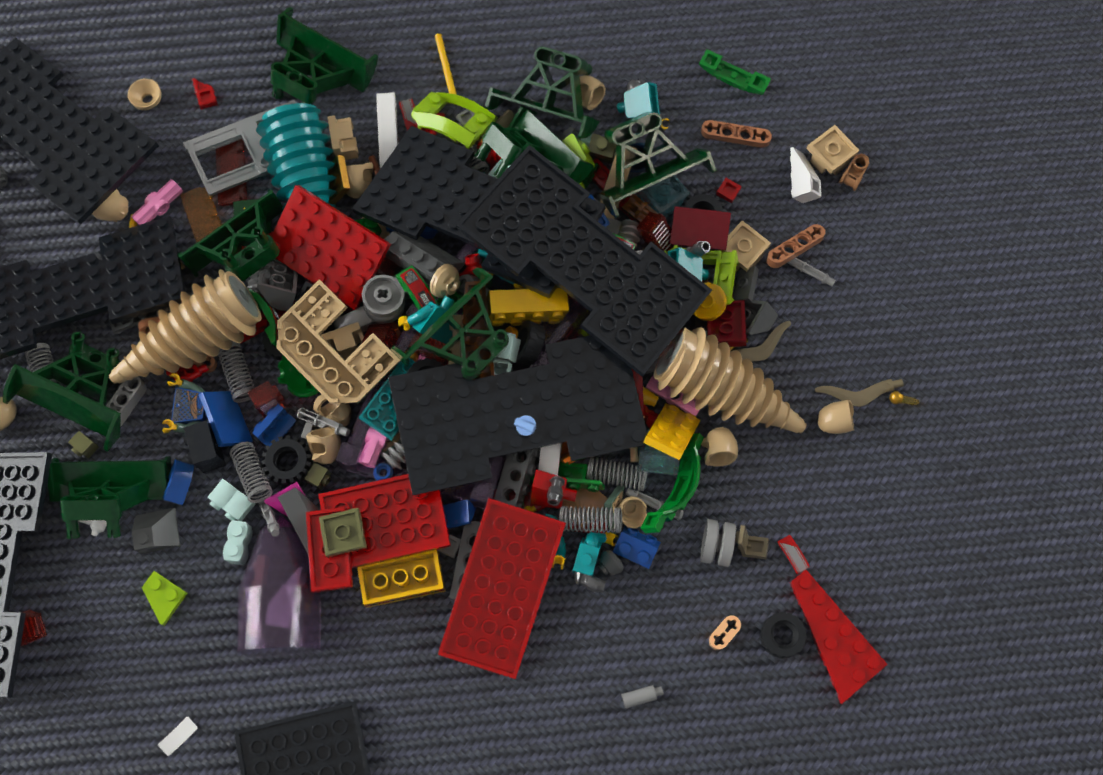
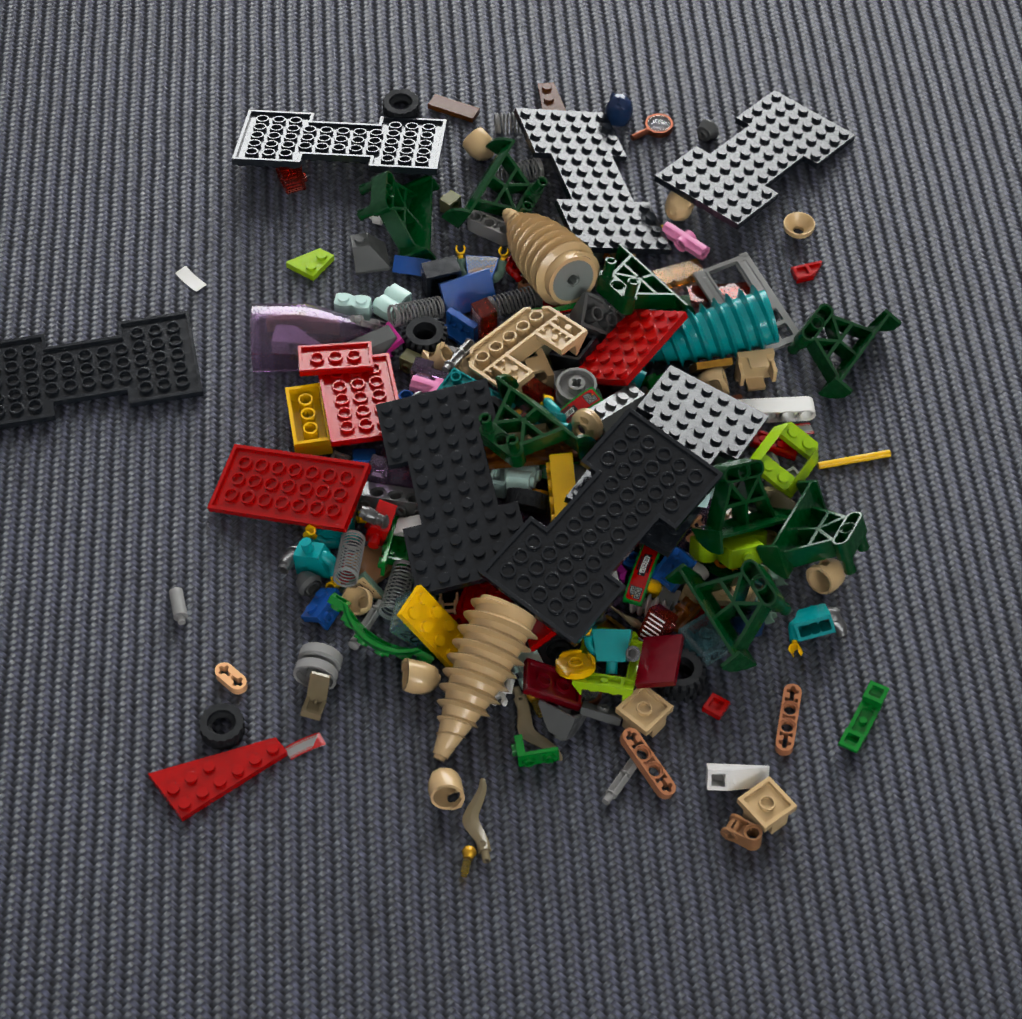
camera: 90 degrees right, 20 degrees down
(342, 532) = (348, 363): olive tile -> none
(525, 425) = (435, 483): light blue plate -> none
(790, 355) = (533, 757): none -> green bracket

